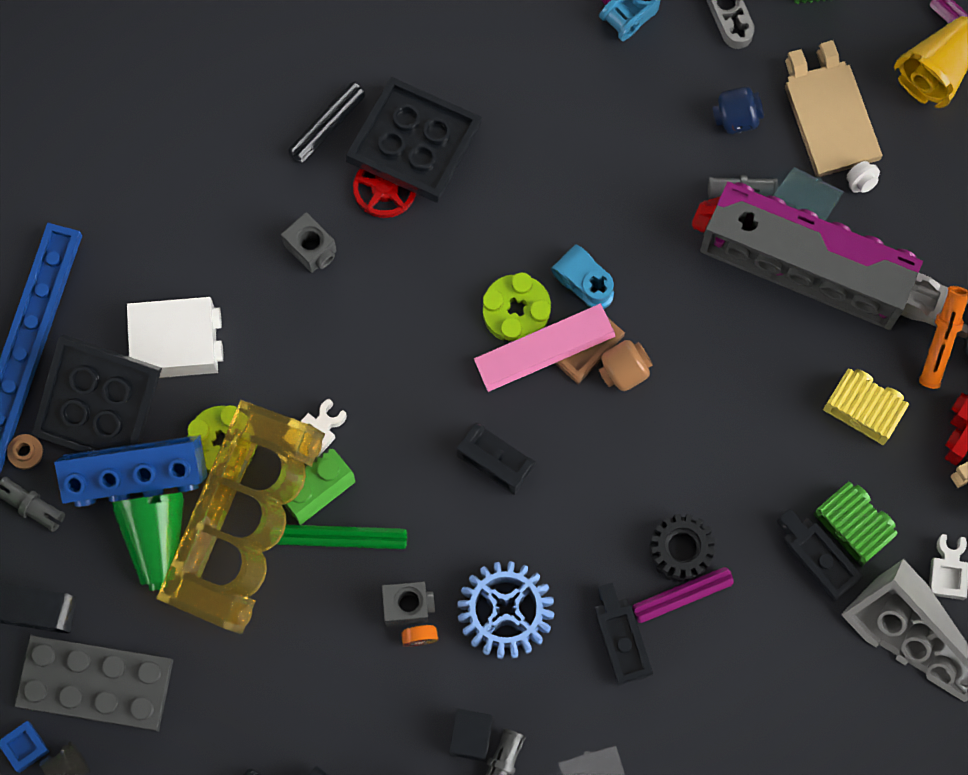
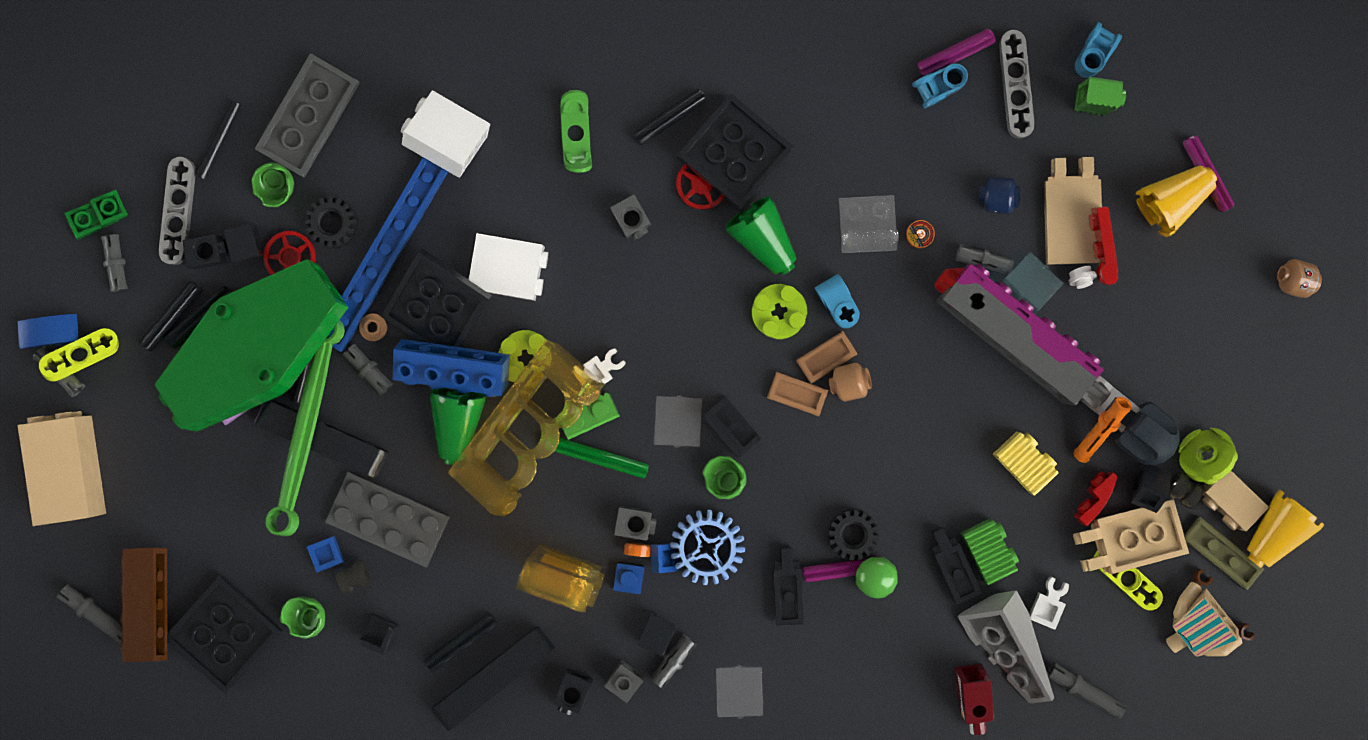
camera: 10 degrees right, 15 degrees up
(62, 201) = (444, 133): none -> white brick
(213, 145) = (575, 112): none -> bright green piece
(327, 670) = (561, 578): none -> clear yellow fence
(417, 677) = (628, 578): none -> blue plate
(428, 469) = (678, 421): none -> clear piece
(452, 639) = (661, 558): none -> blue plate
(475, 223) = (764, 235): none -> green cone
(503, 516) = (724, 477): none -> bright green hair
(544, 347) = (791, 351): bright pink tile -> none
(565, 399) = (797, 394): none -> medium nougat tile
(594, 183) = (868, 224): none -> clear hinge
(658, 179) = (920, 234): none -> tile
(726, 590) = (876, 577): none -> bright green hair
(877, 131) = (1104, 246): none -> red hinge
(885, 697) = (974, 697): none -> dark red torso

